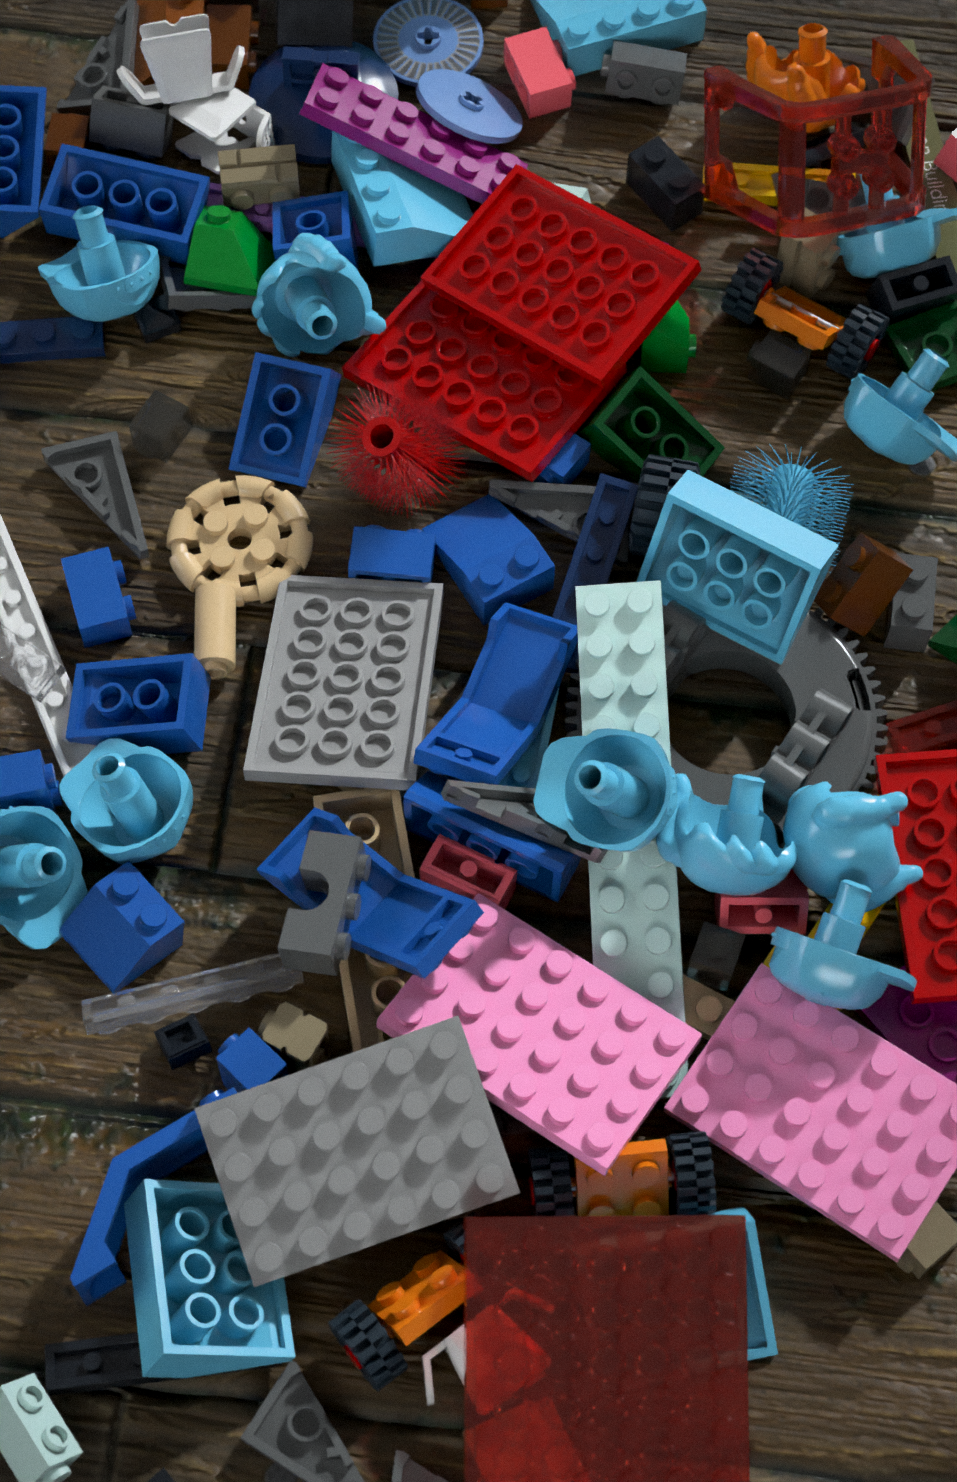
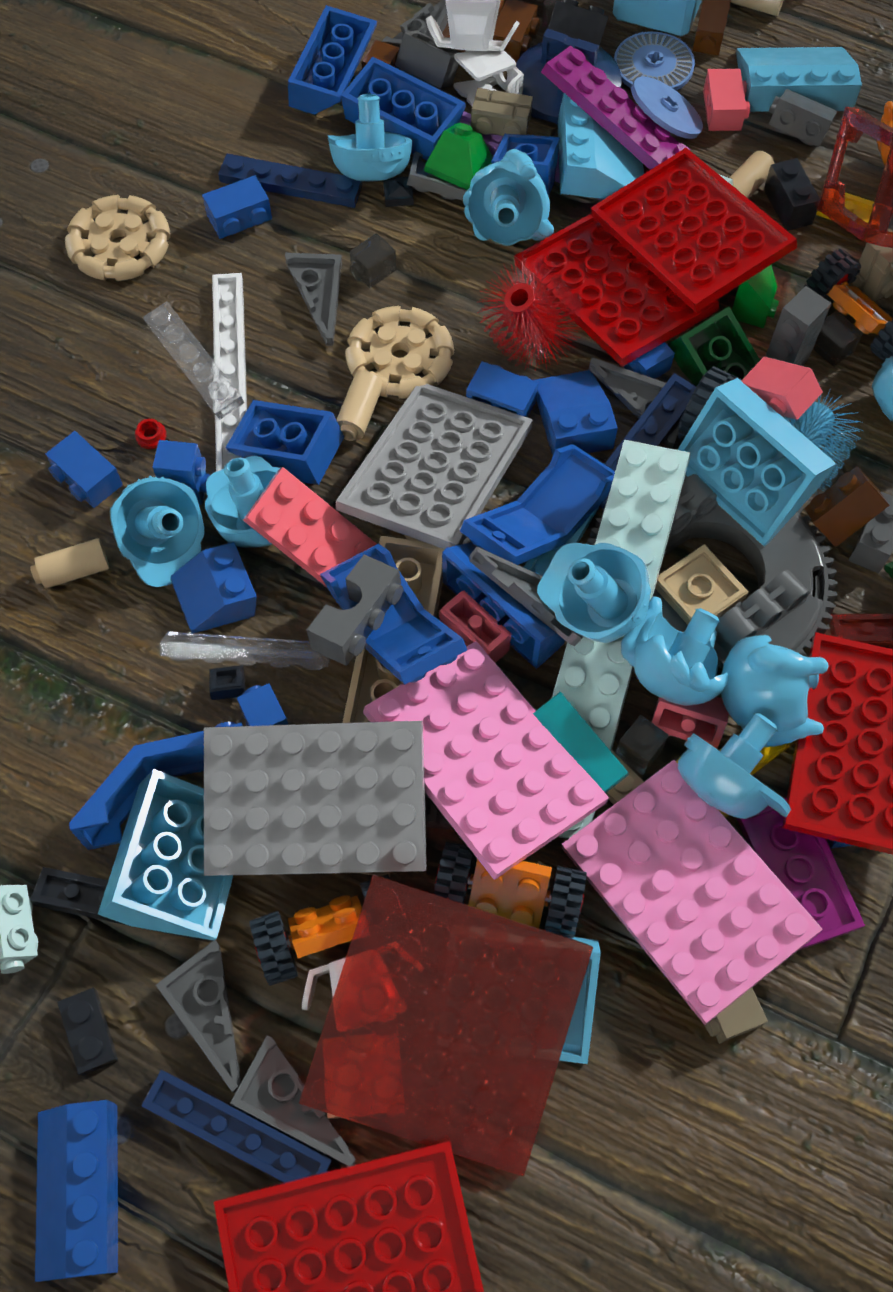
camera: 20 degrees right, 0 degrees up
(97, 596) = (285, 360): blue brick -> none
(216, 814) = (305, 525): none -> coral plate
(284, 419) = (458, 275): blue slope -> none
(296, 1038) = (302, 701): dark tan brick -> none
(606, 170) = (752, 173): none -> tan brick
(646, 977) = (581, 742): none -> teal tile
(722, 740) = (700, 583): none -> tan tile
(733, 379) = (798, 327): none -> dark grey brick
(743, 463) = (784, 386): none -> coral brick

